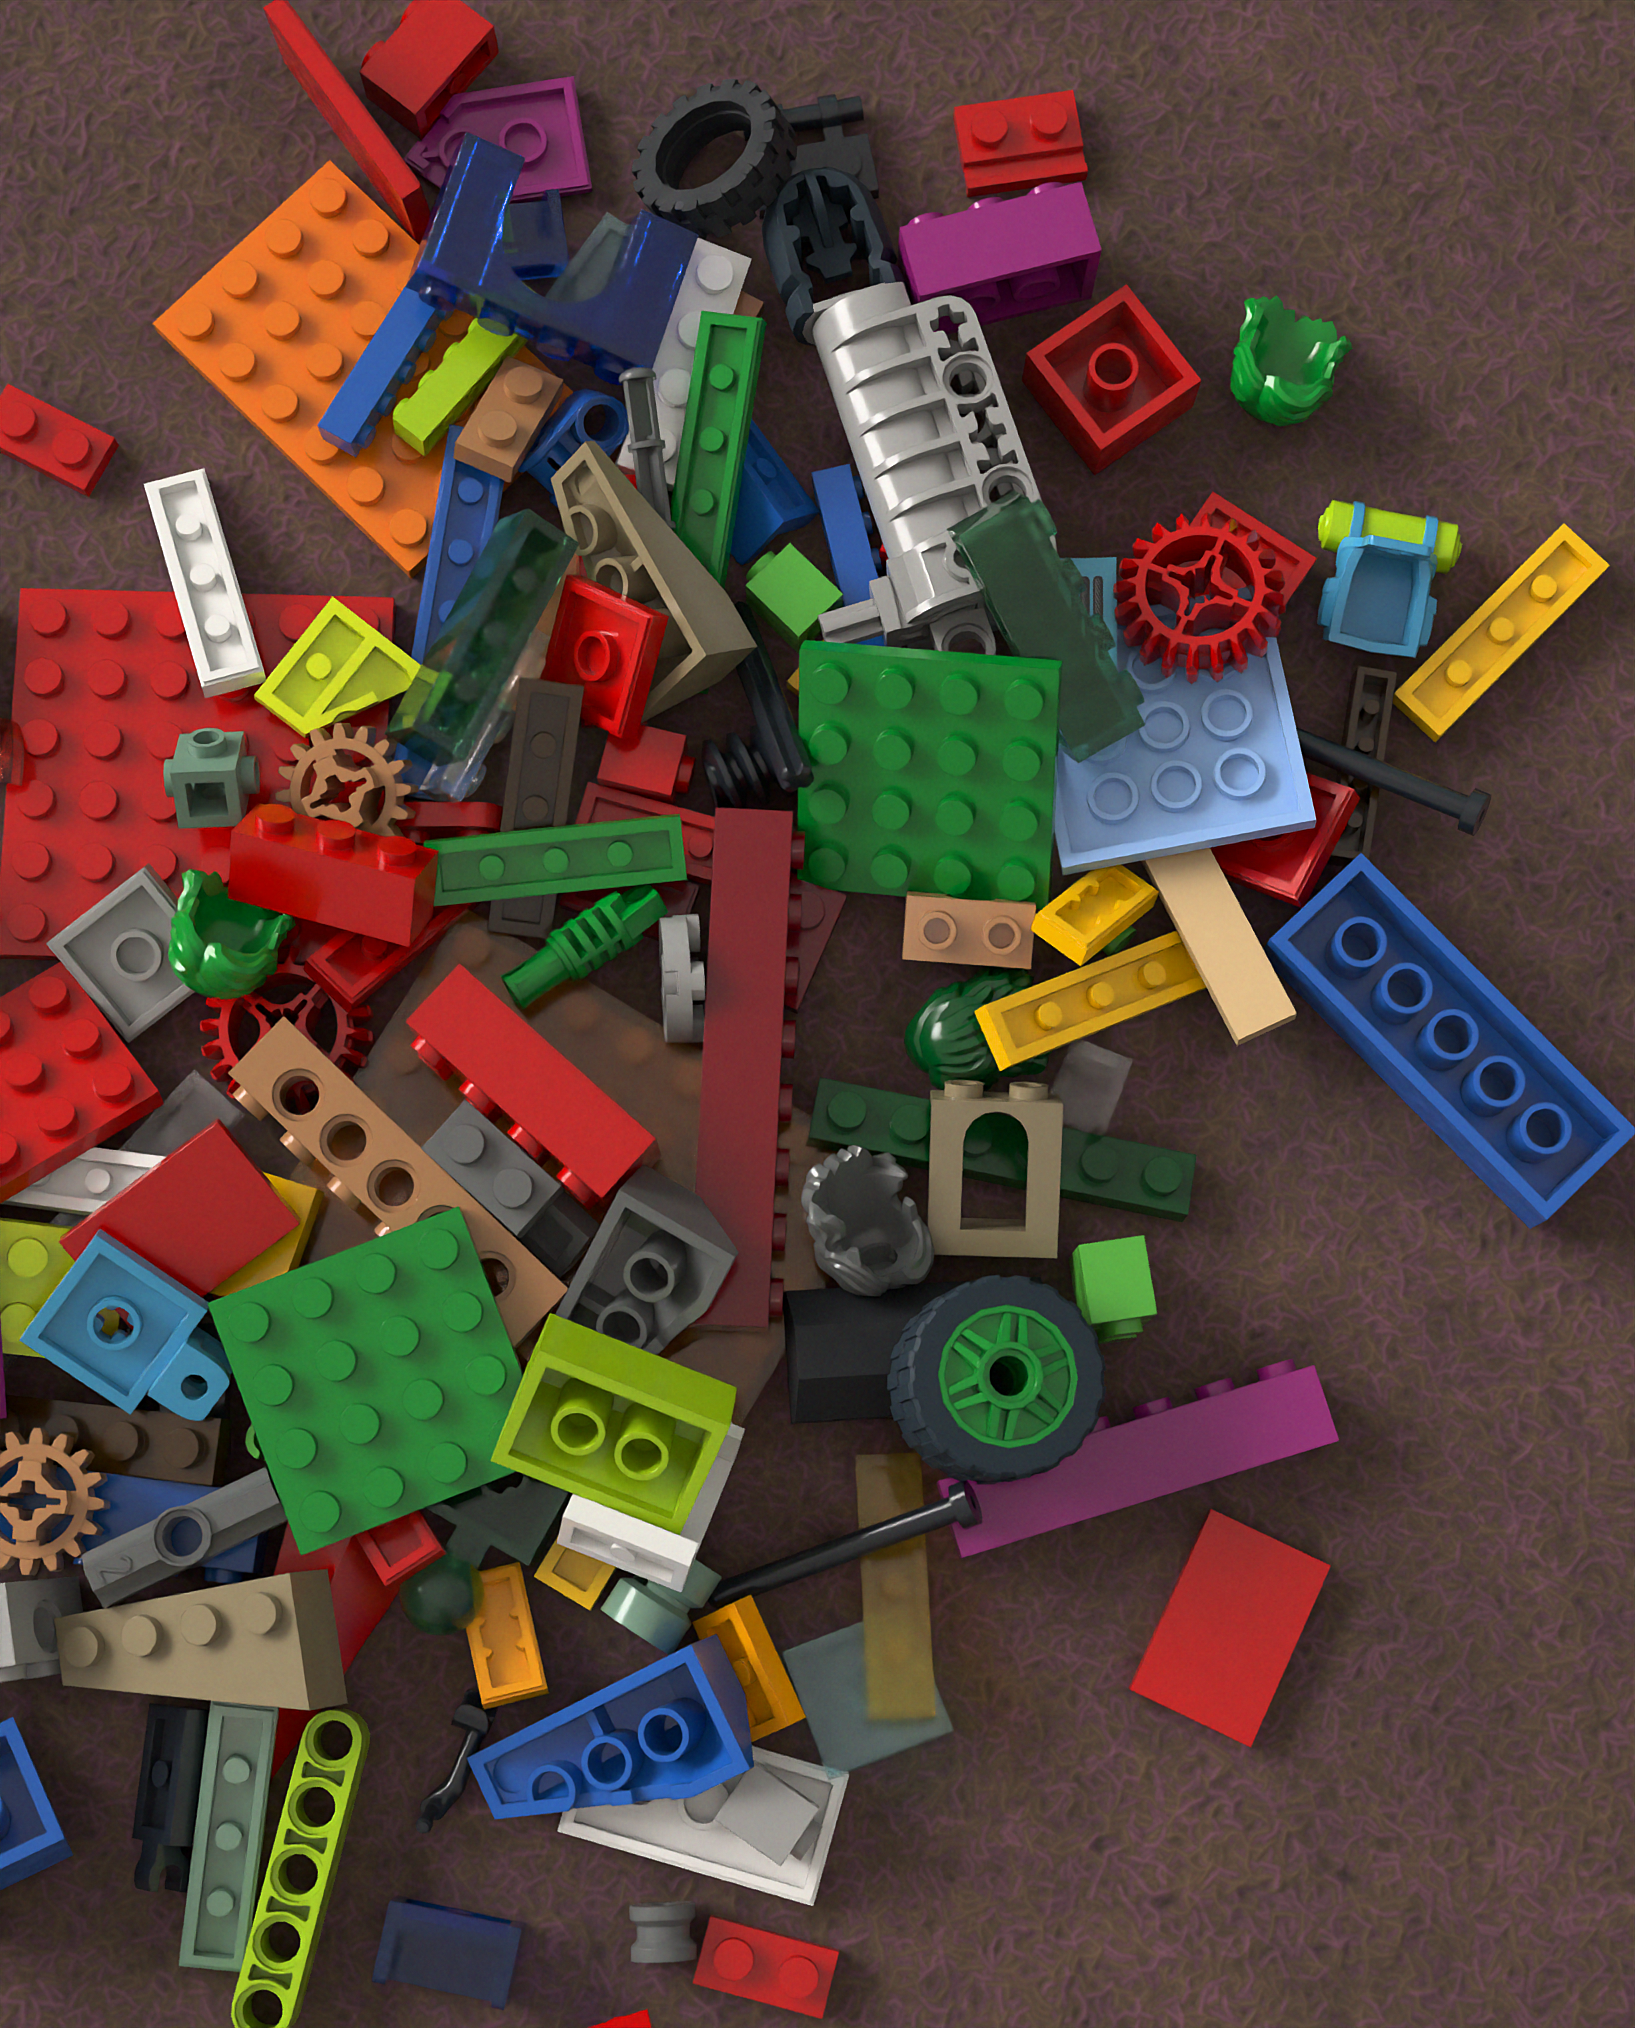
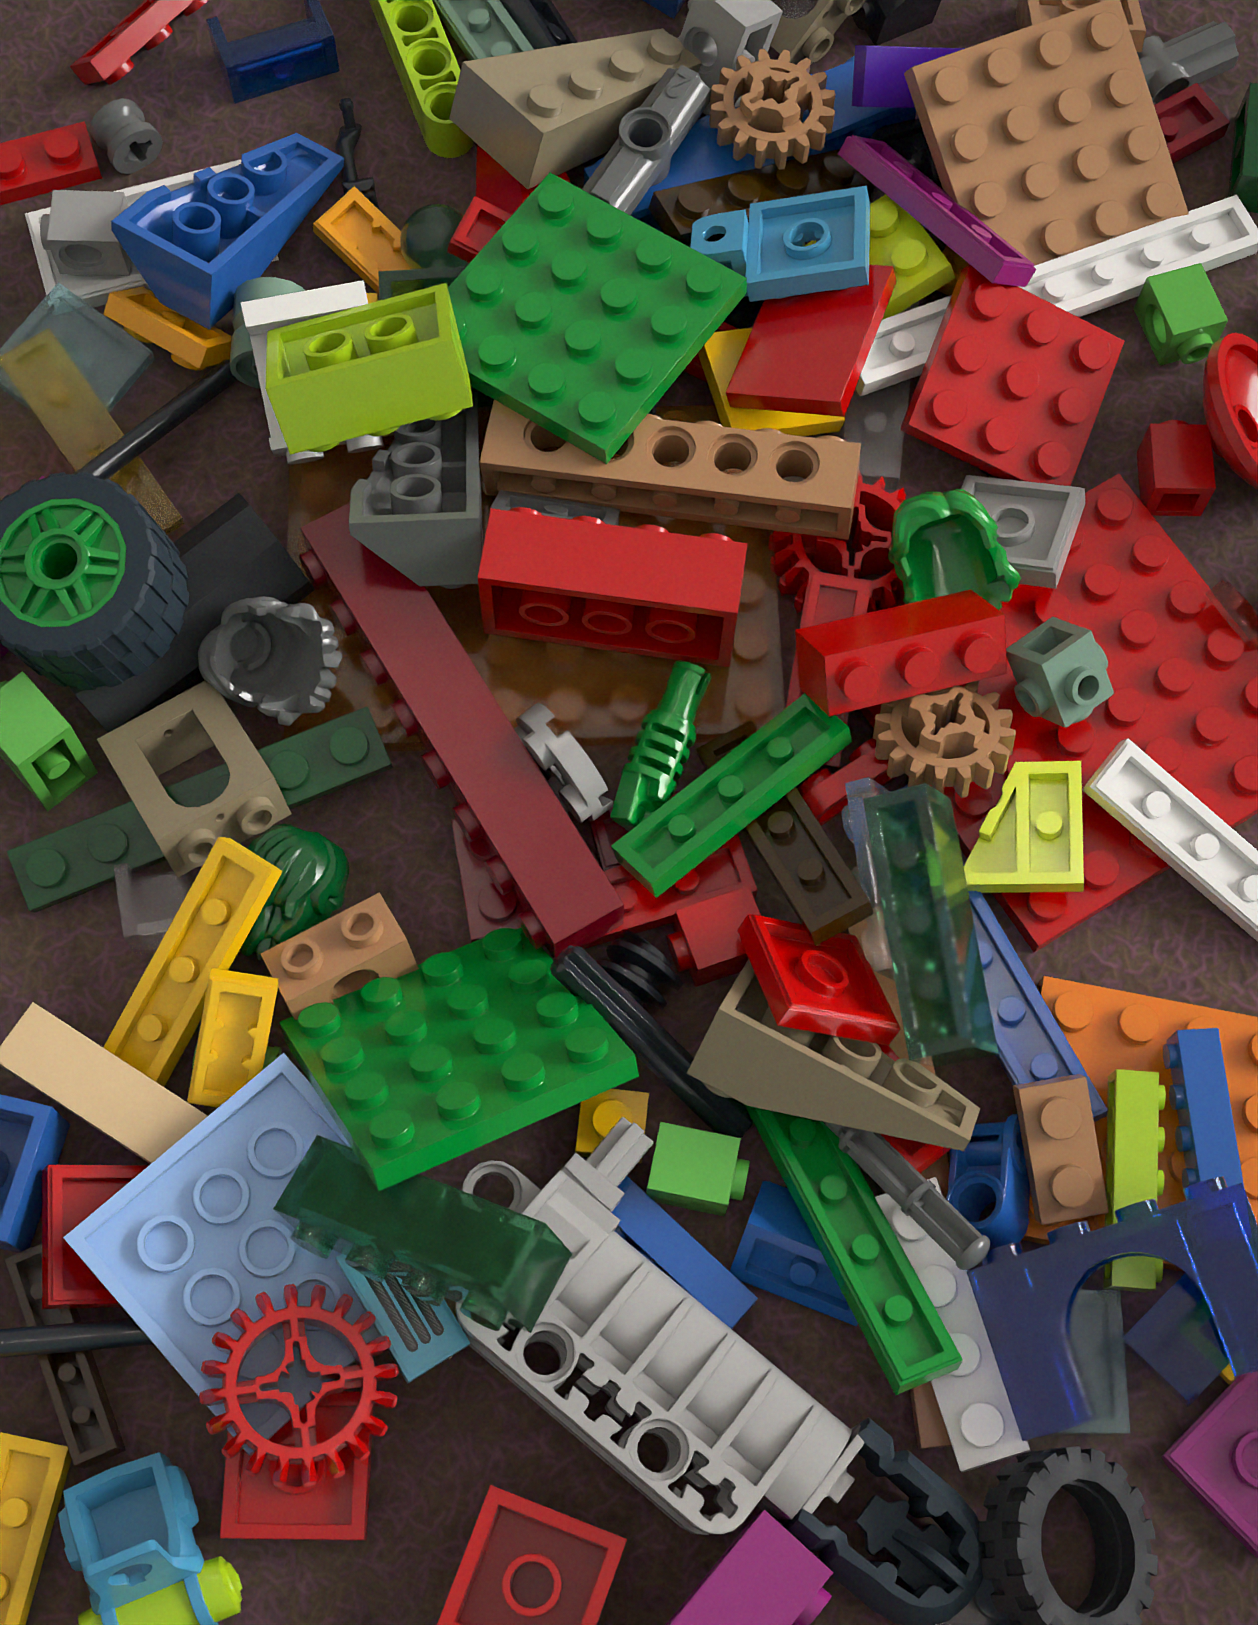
camera: 145 degrees right, 10 degrees down
(493, 1168) = (609, 497): dark grey plate -> none

